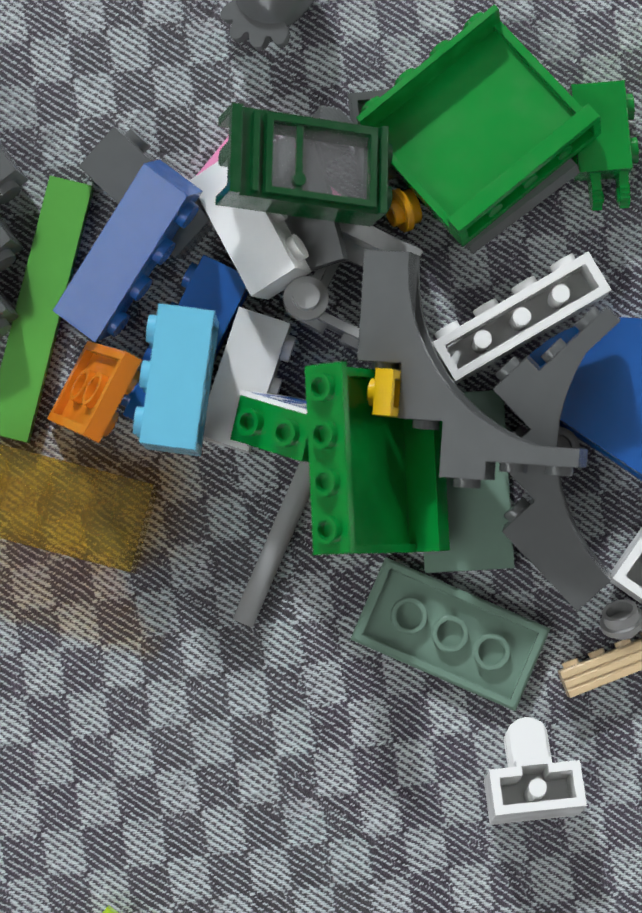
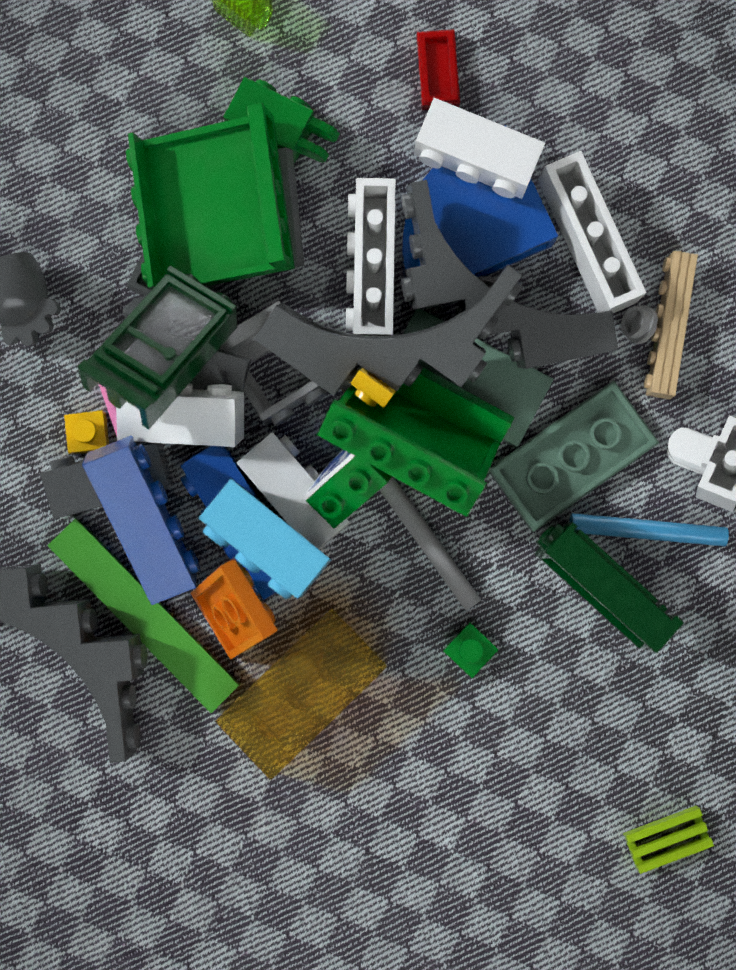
camera: 65 degrees left, 0 degrees up
(182, 144) = (86, 431): none -> yellow plate
(196, 646) = (470, 650): none -> green plate
(306, 298) = (261, 407): light grey plate -> none
(337, 739) = (606, 586): none -> dark green door
(404, 210) = (242, 296): light orange plate -> none
(422, 752) = (651, 529): none -> dark azure piece

